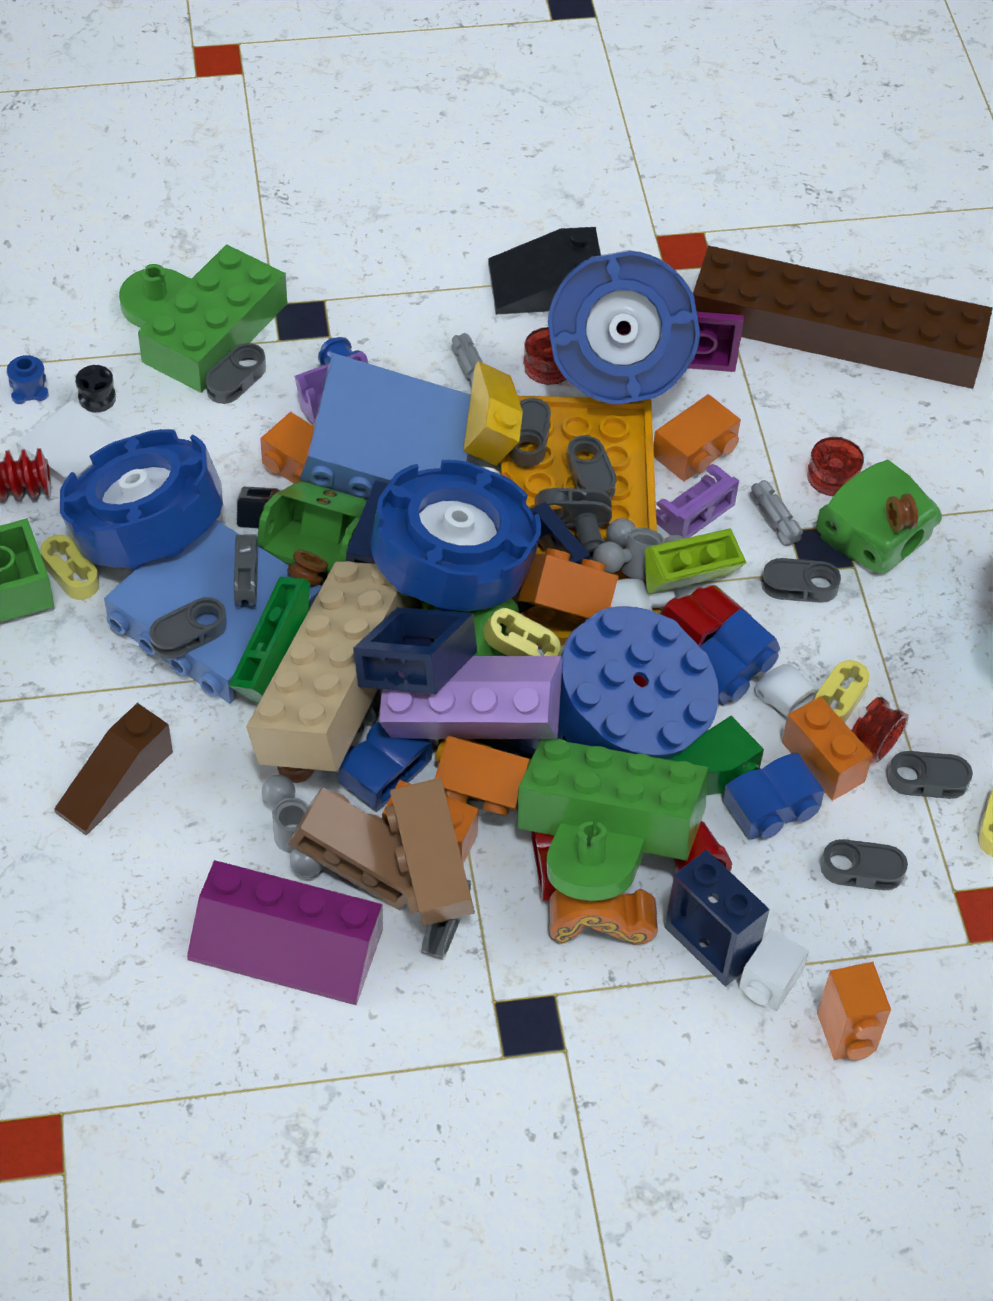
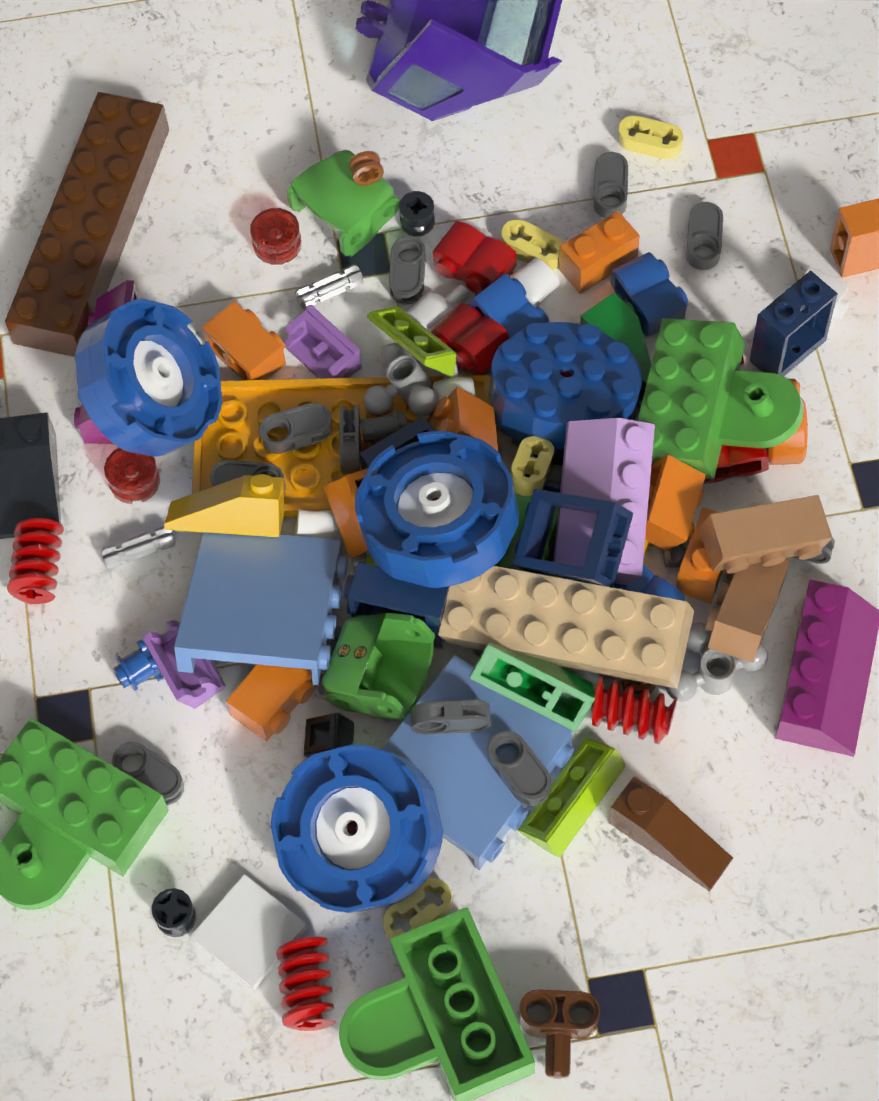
camera: 85 degrees left, 10 degrees up
(27, 379) = (165, 997): blue brick -> none
(171, 698) = (573, 796): none -> lime slope
(236, 758) = (632, 711): none -> red piece
(307, 566) = (438, 665): dark orange bush -> none
(456, 284) = (35, 560): none -> red piece
(751, 598) = (435, 306): none -> white piece
(814, 633) = (472, 257): none -> red brick
(864, 593) = (423, 220): none -> black wheel
(880, 727) = (577, 210): clear red wheel -> none

